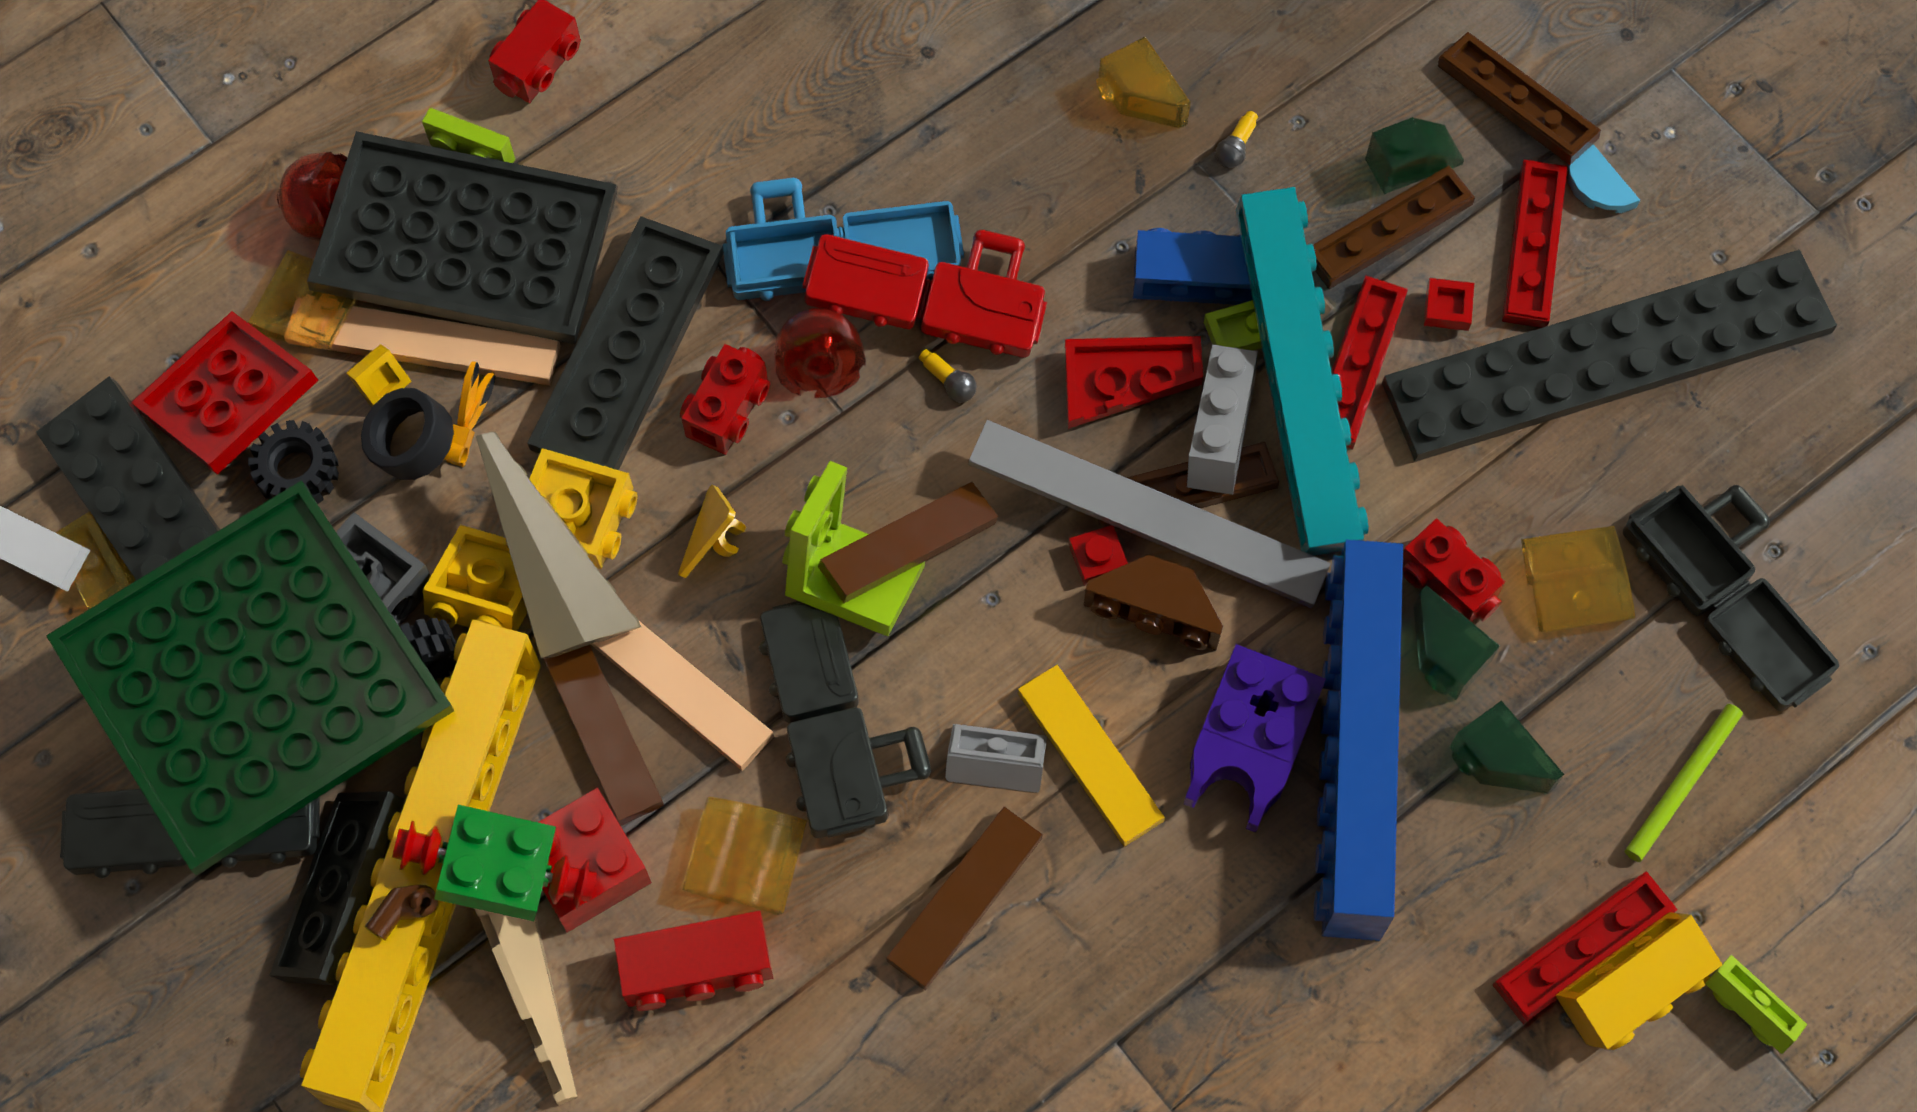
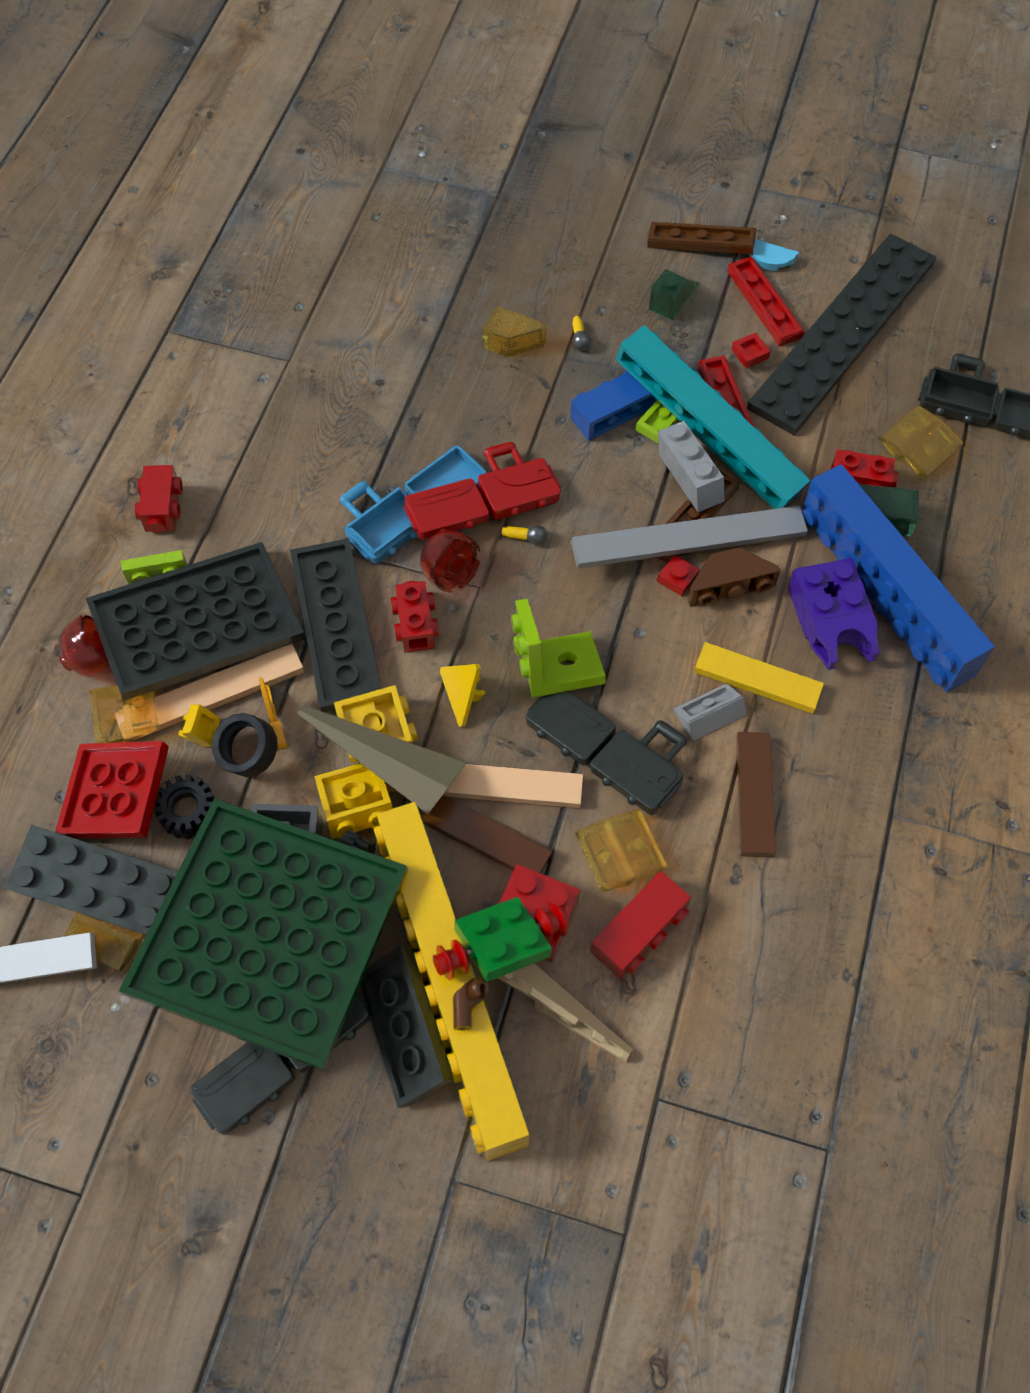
camera: 35 degrees left, 5 degrees down
(907, 542) = (576, 628): reddish brown tile -> none
(1127, 372) = (618, 476): red wing -> none
(1391, 226) = (693, 323): reddish brown tile -> none
(1504, 753) = (961, 543): clear green slope -> none

